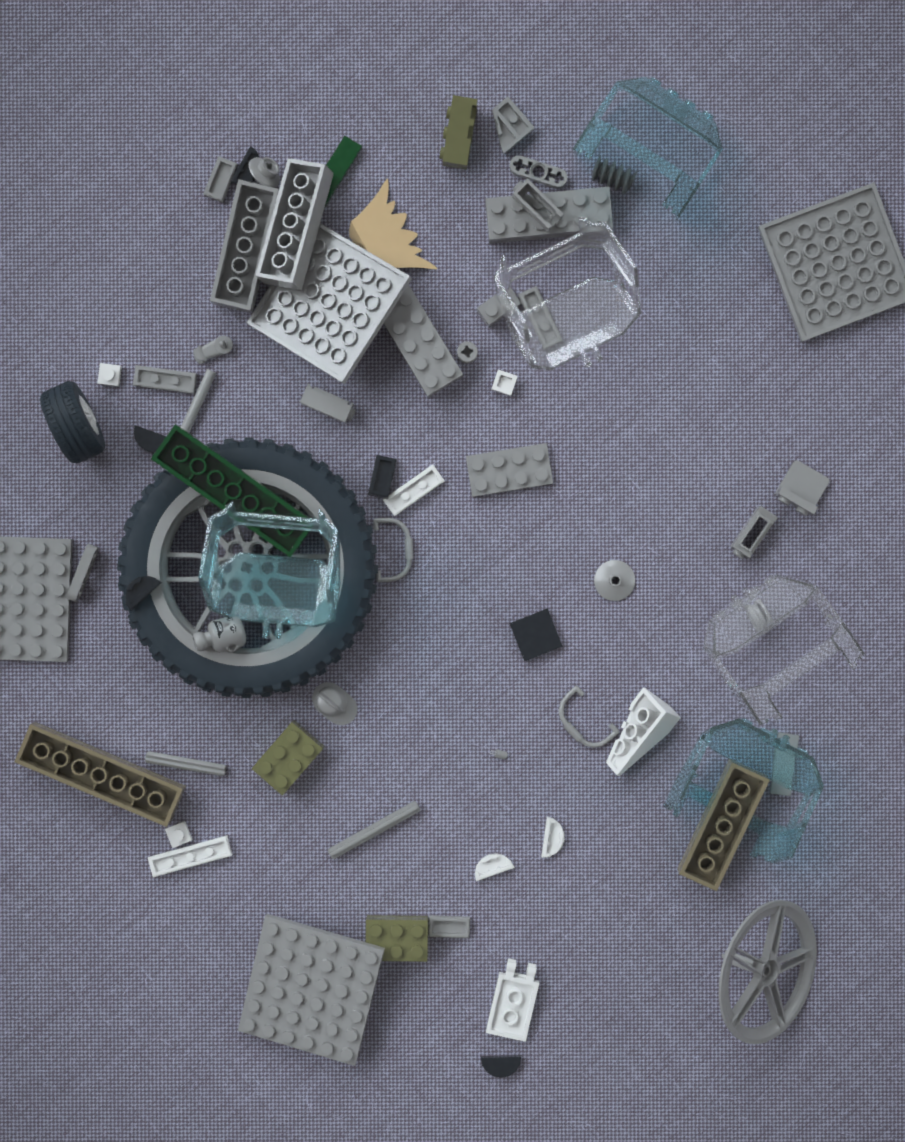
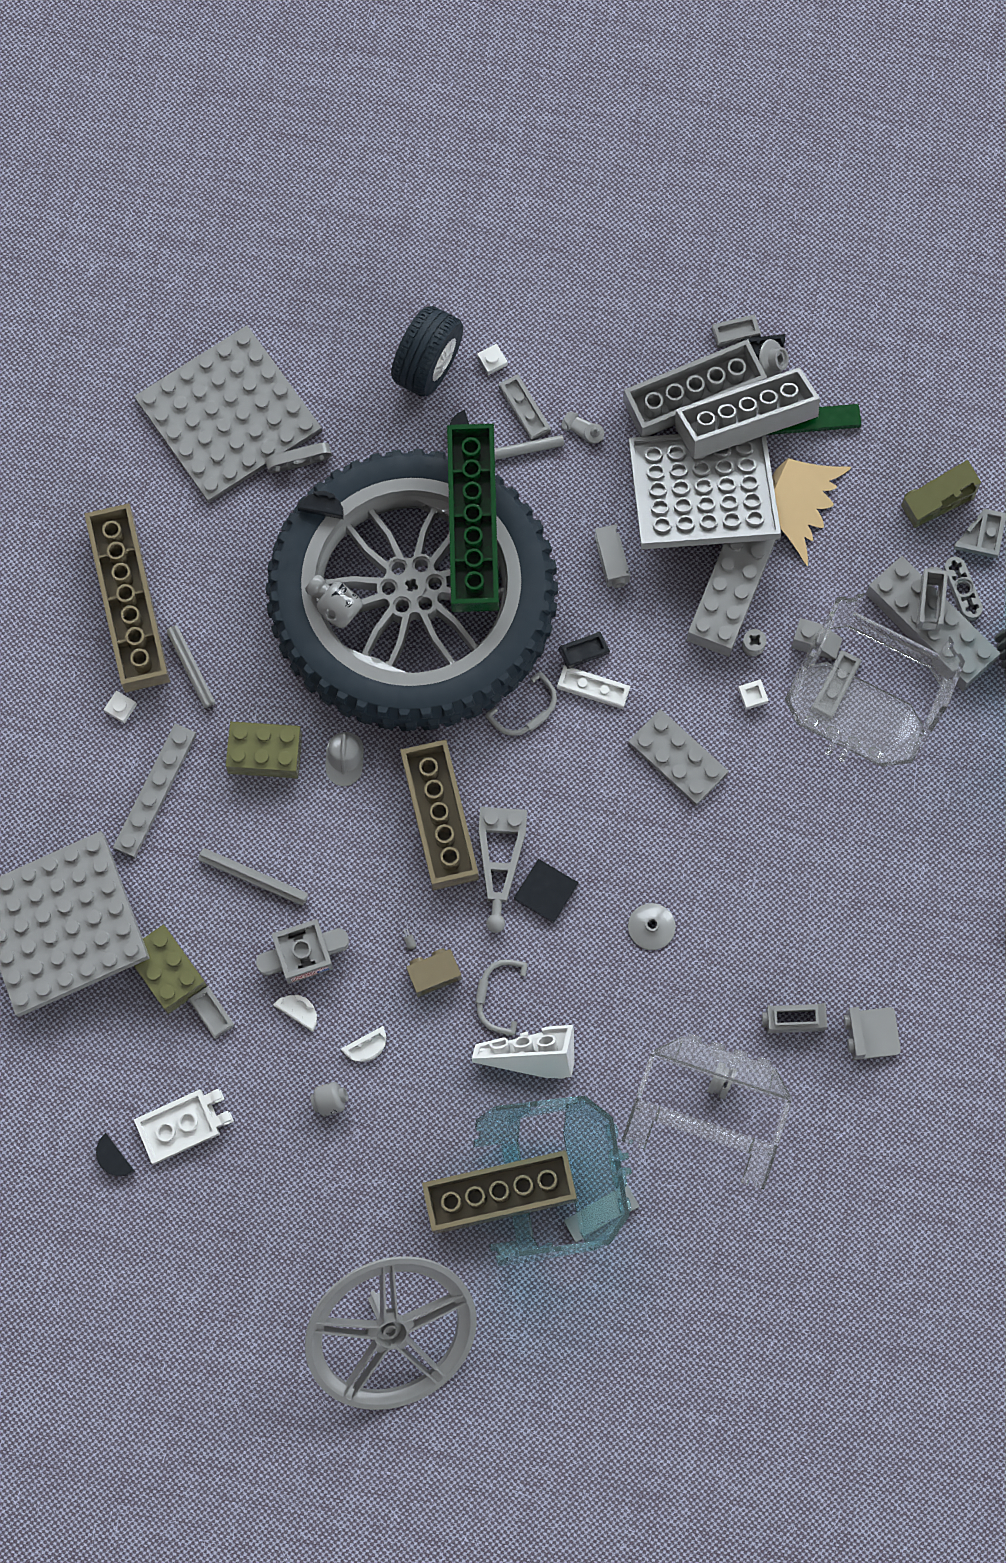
camera: 55 degrees right, 15 degrees down
(190, 856) = (107, 731): white tile -> none
(259, 853) = (154, 790): none -> light grey plate
(271, 586) = (407, 605): clear light blue windscreen -> none
(428, 670) = (439, 815): none -> dark tan brick
(455, 836) = (302, 951): none -> light grey brick
(463, 628) = (504, 822): none -> light grey plate
(536, 755) = (433, 971): none -> dark tan brick
(571, 891) = (329, 1099): none -> light grey head

